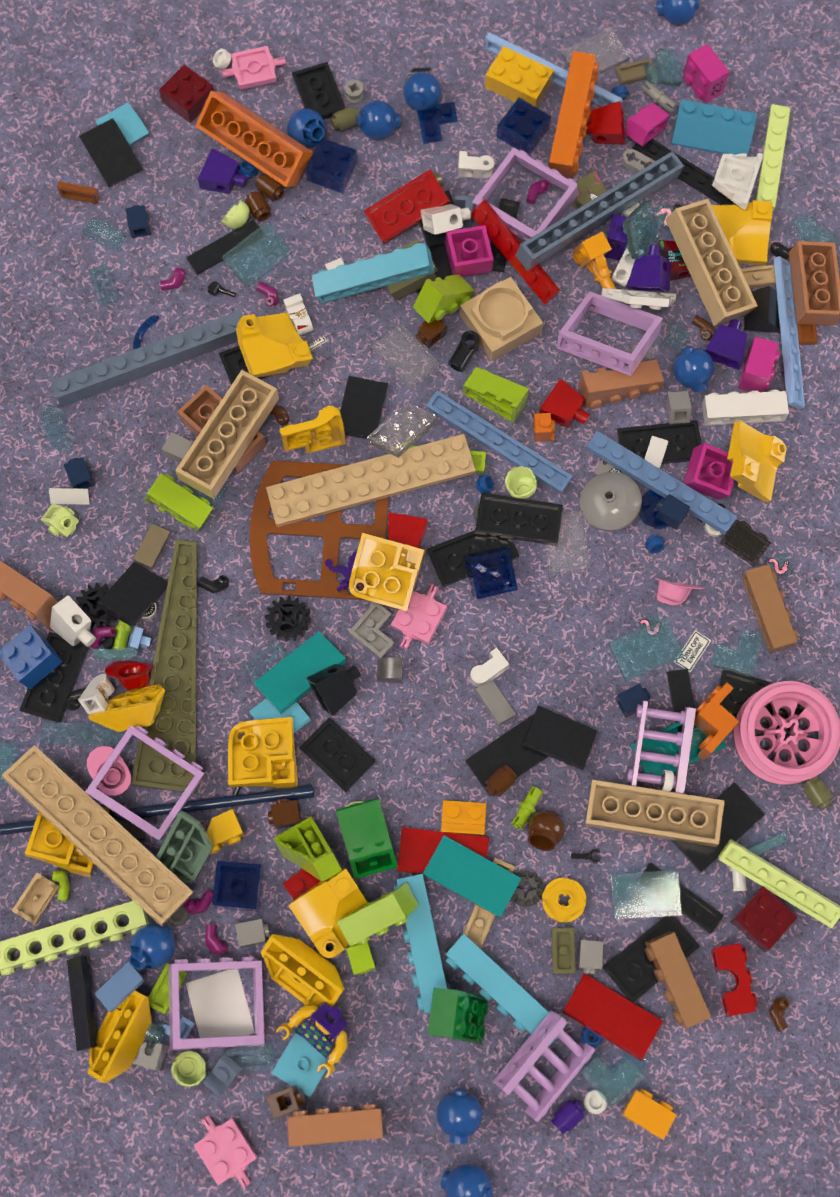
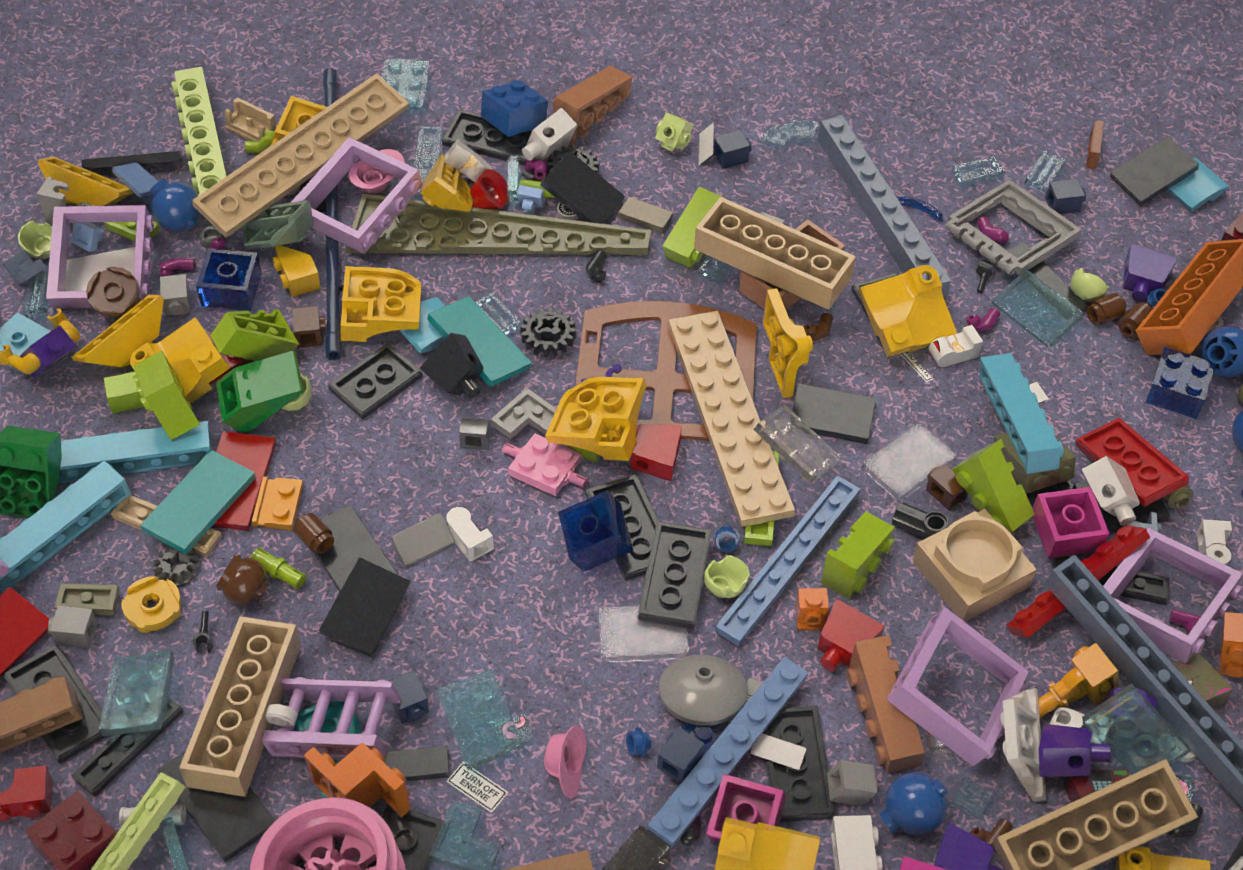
camera: 90 degrees right, 20 degrees down
(155, 246) = (1055, 226): none -> light grey hinge
(259, 983) = (113, 292): none -> reddish brown tile

